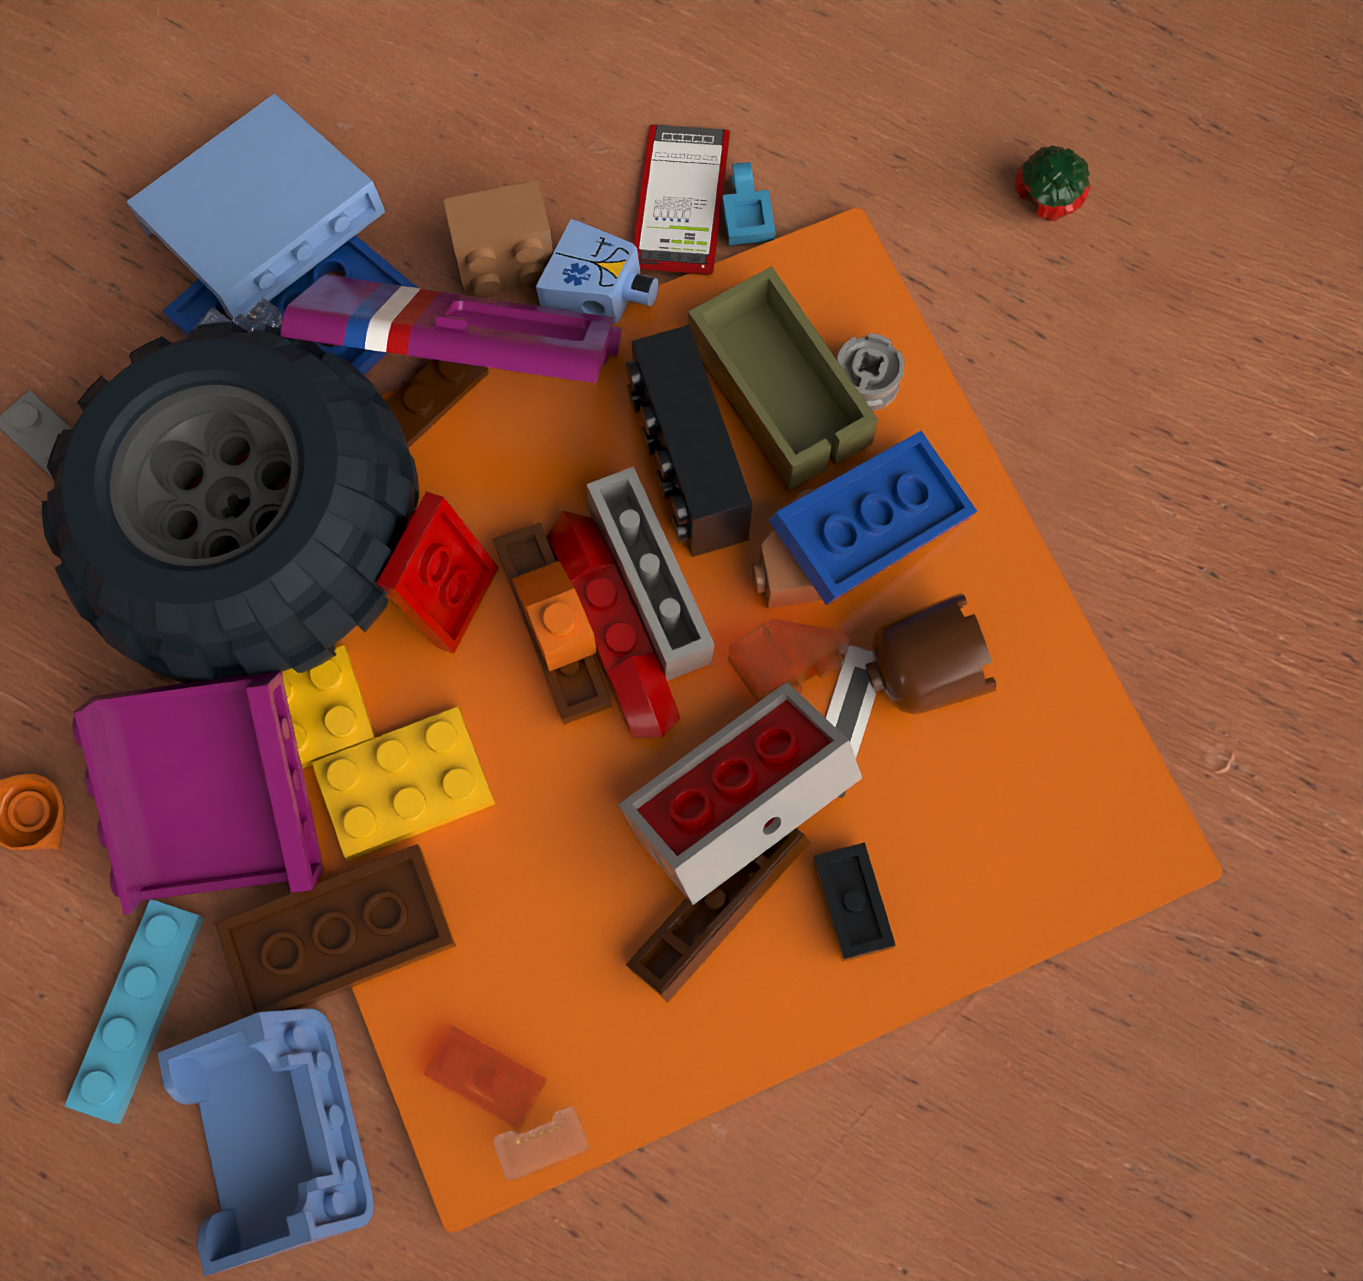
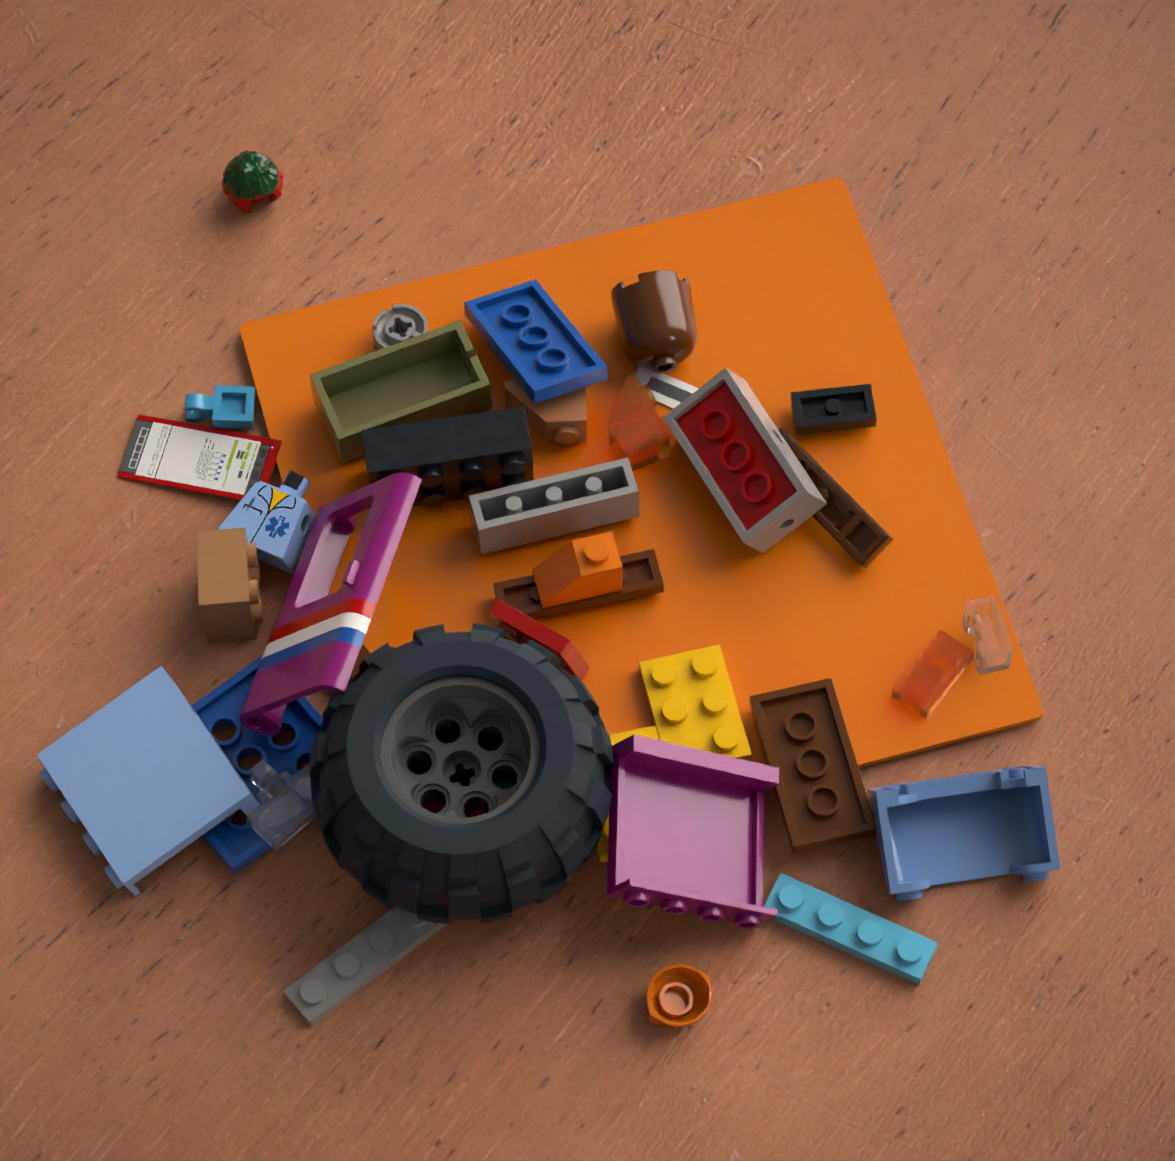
camera: 80 degrees left, 10 degrees down
(617, 629) = (632, 528): red brick -> none

